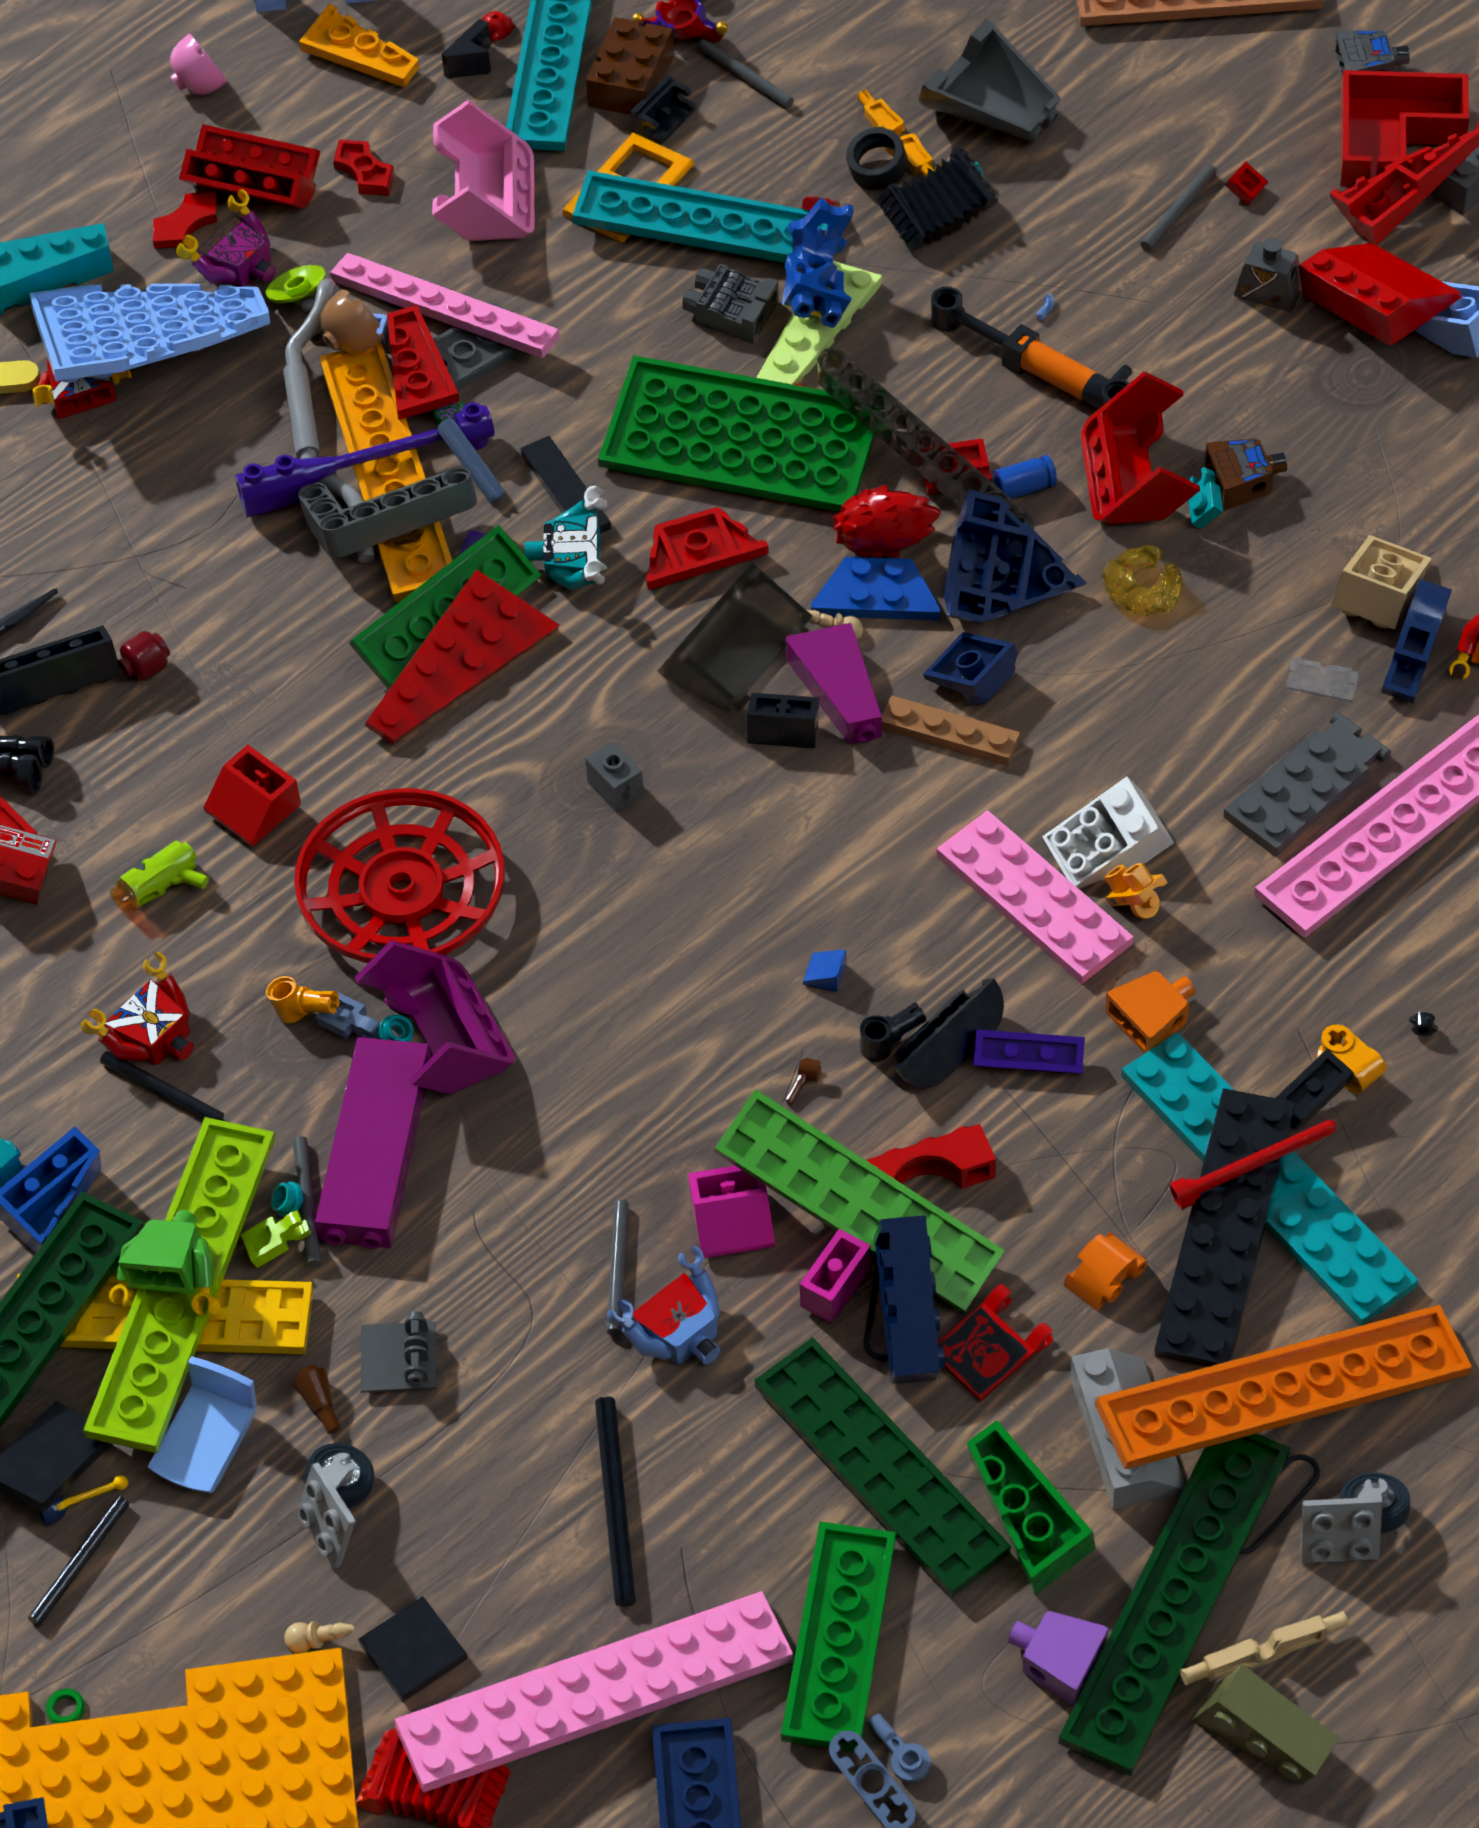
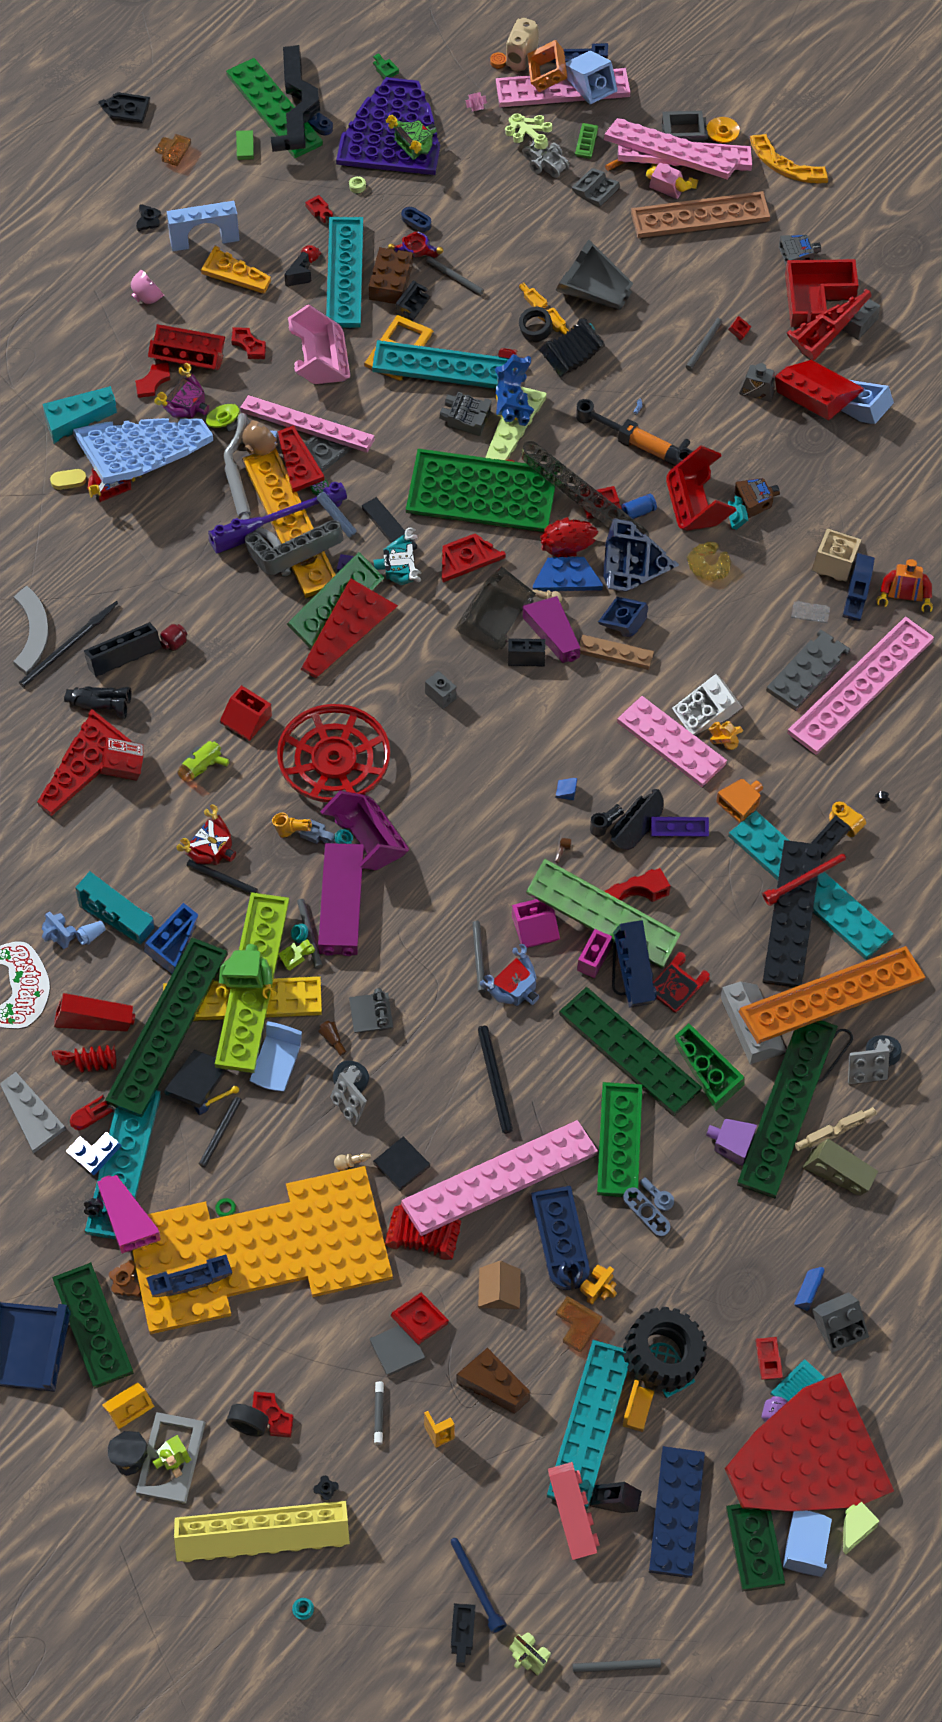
camera: 10 degrees left, 5 degrees up
(1103, 1268) = (731, 940): orange cylinder -> none

